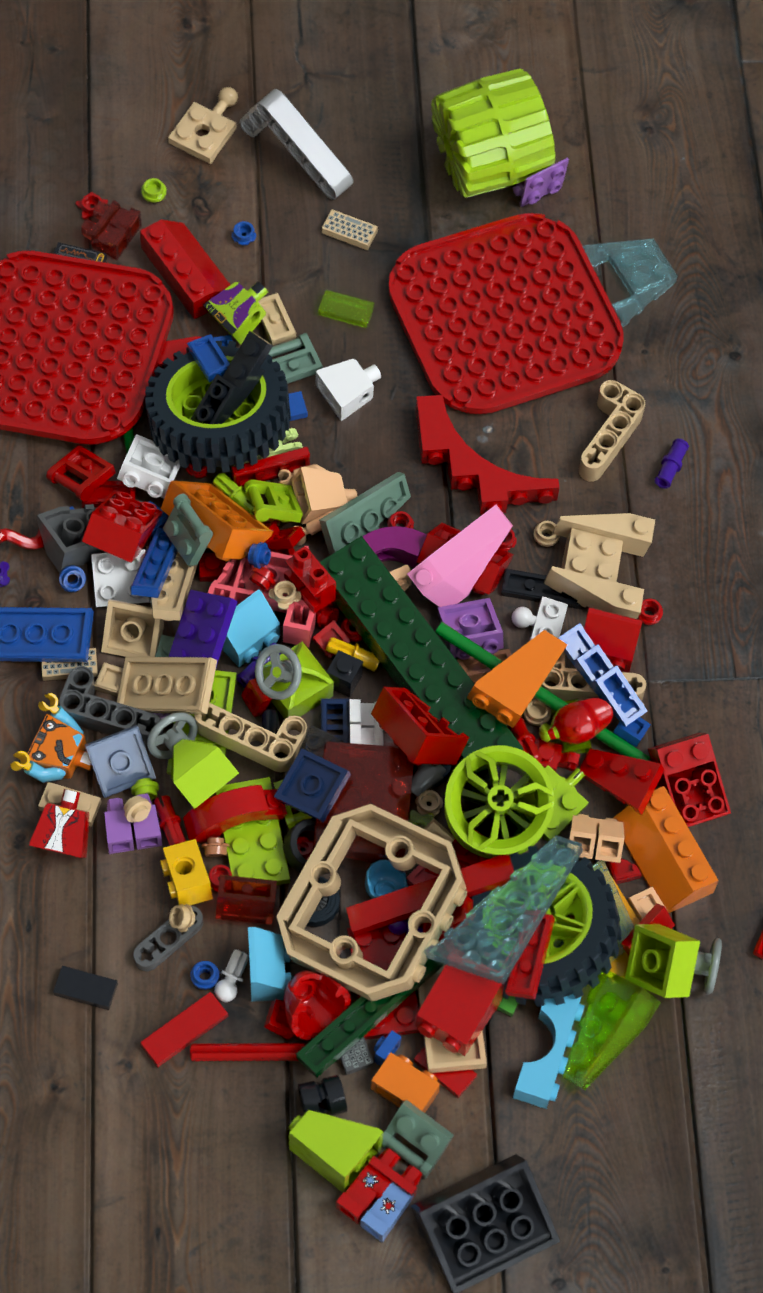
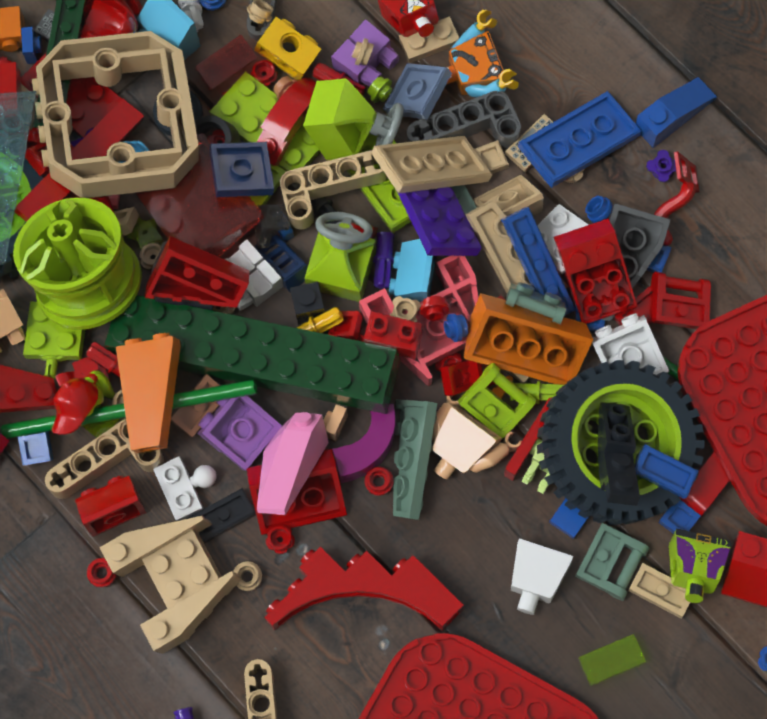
camera: 150 degrees right, 10 degrees up
(602, 676) = (87, 458): slope -> none

